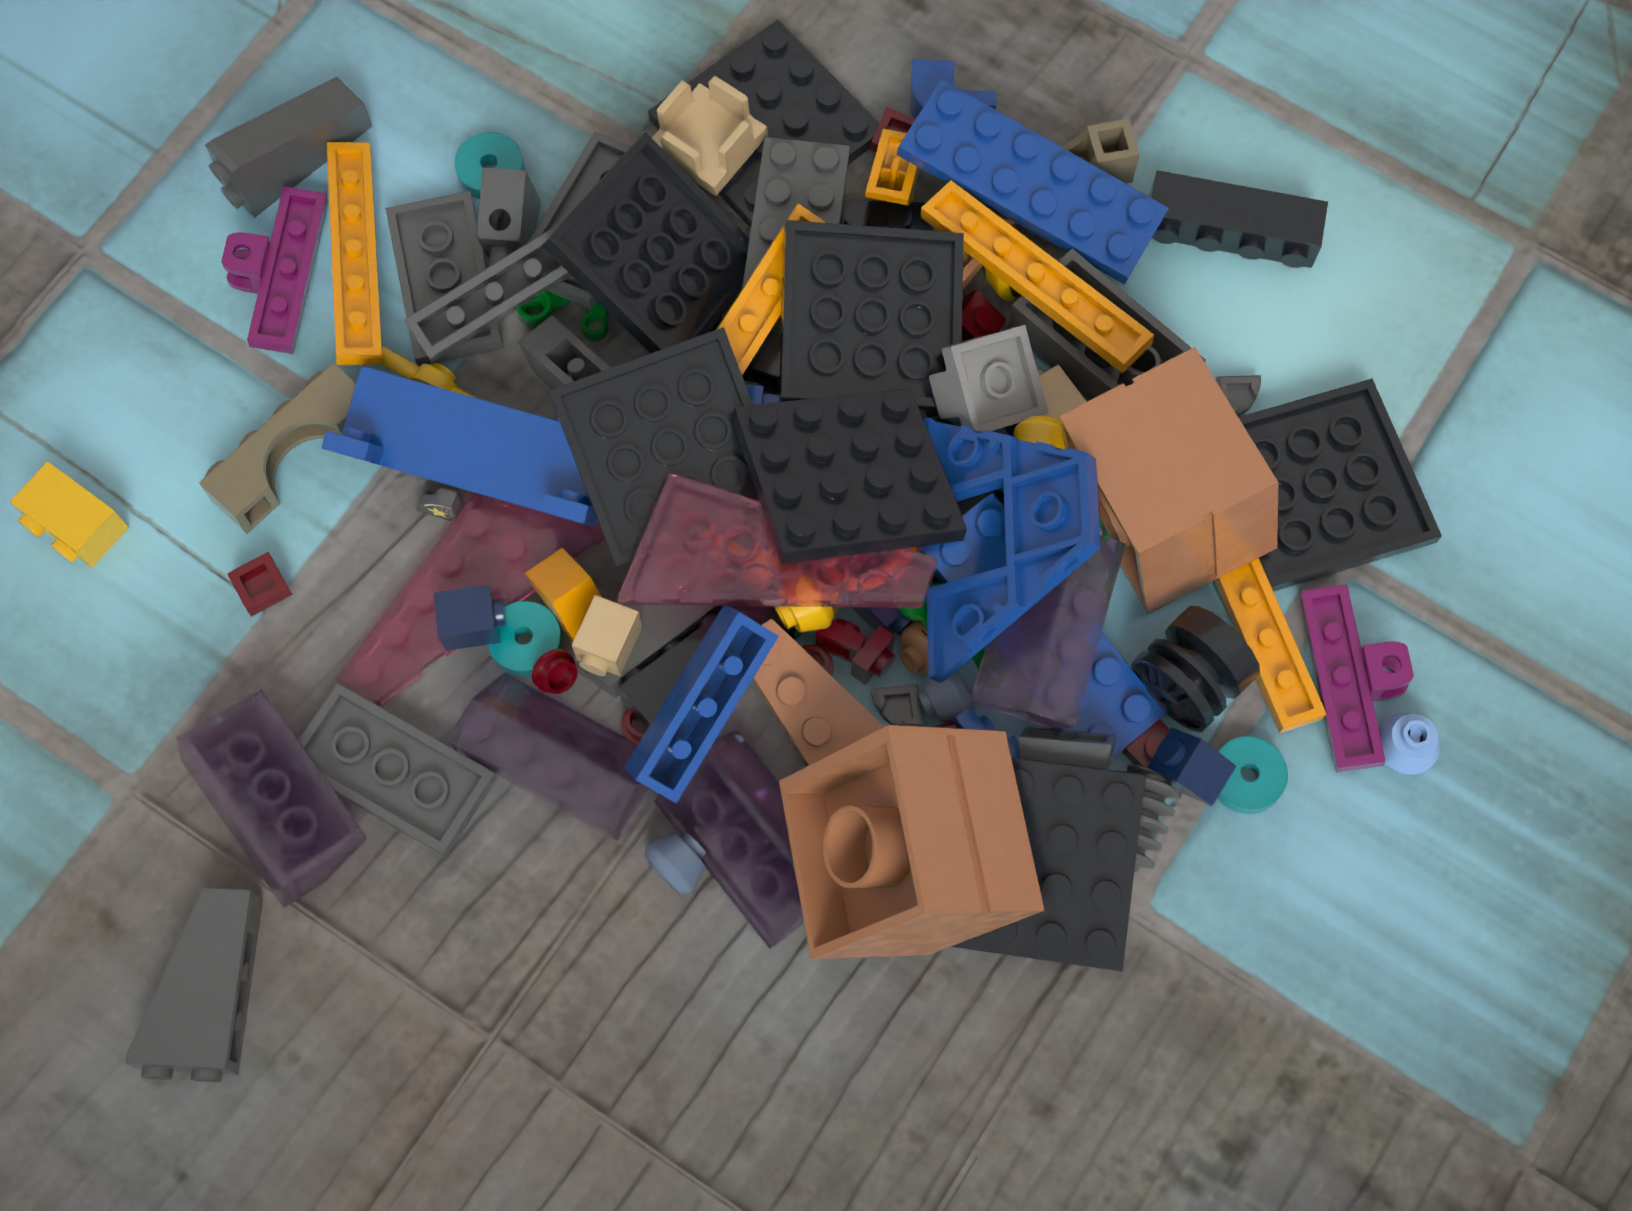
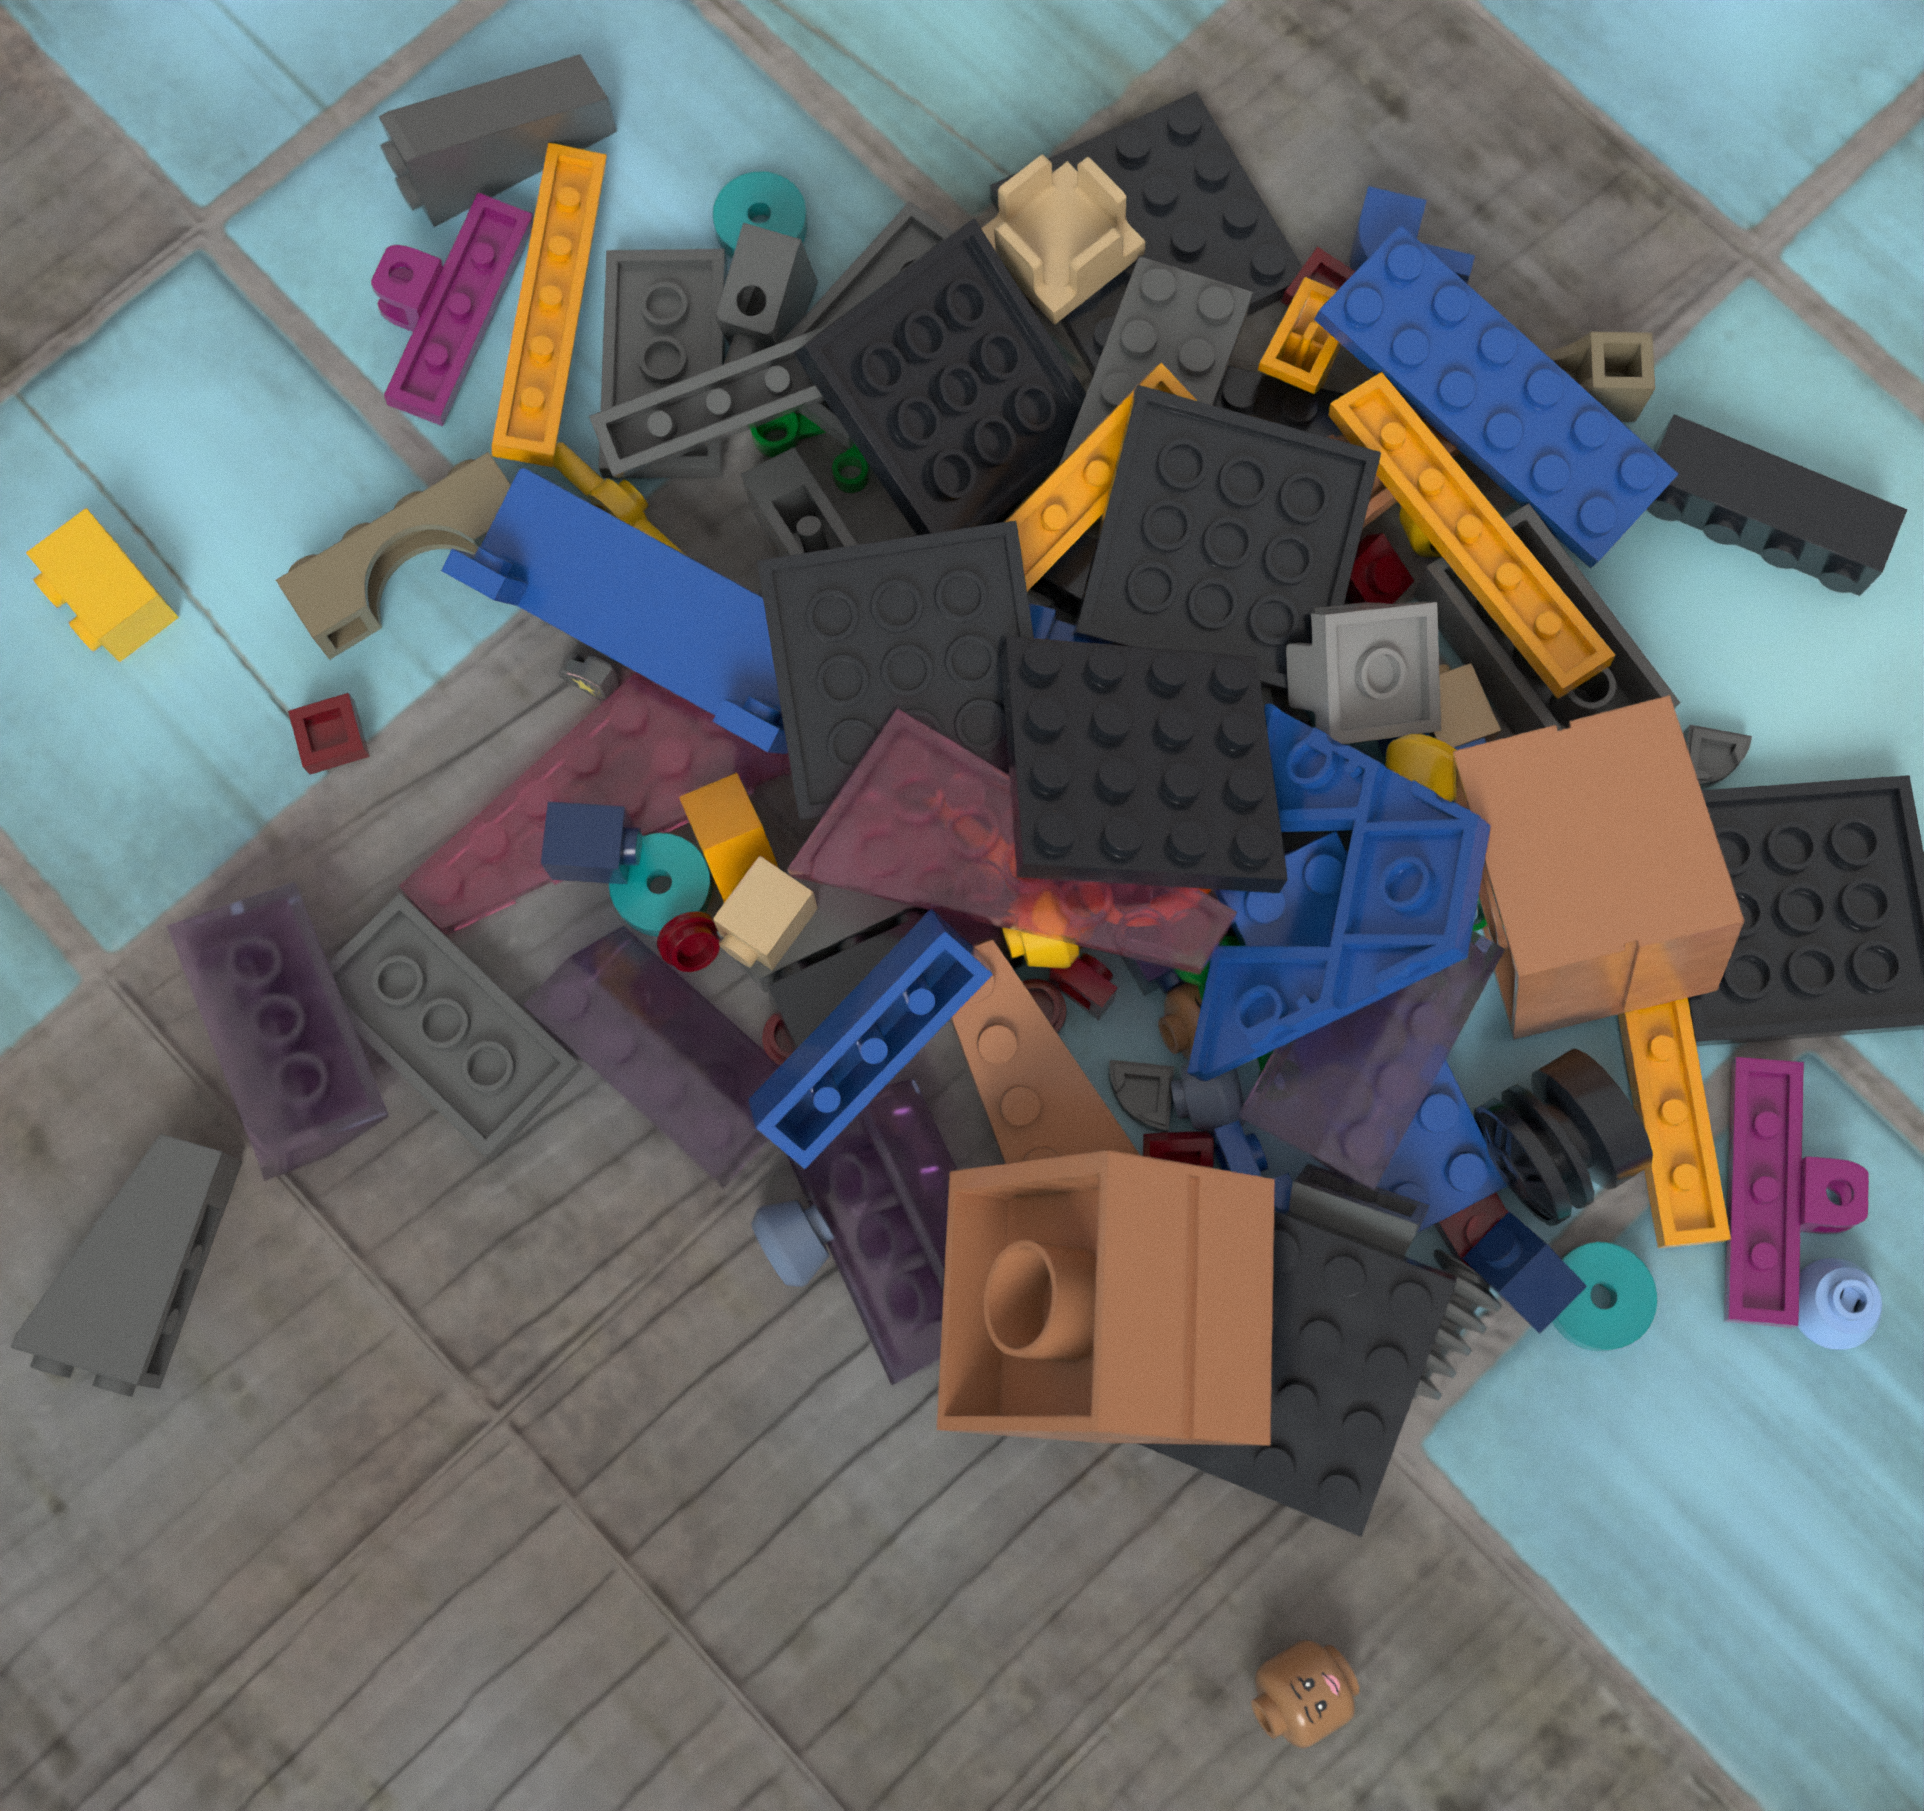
camera: 15 degrees right, 5 degrees up
(874, 656) = (1124, 1016): dark red plate -> none
(1109, 1089) = (1305, 1693): none -> medium nougat head

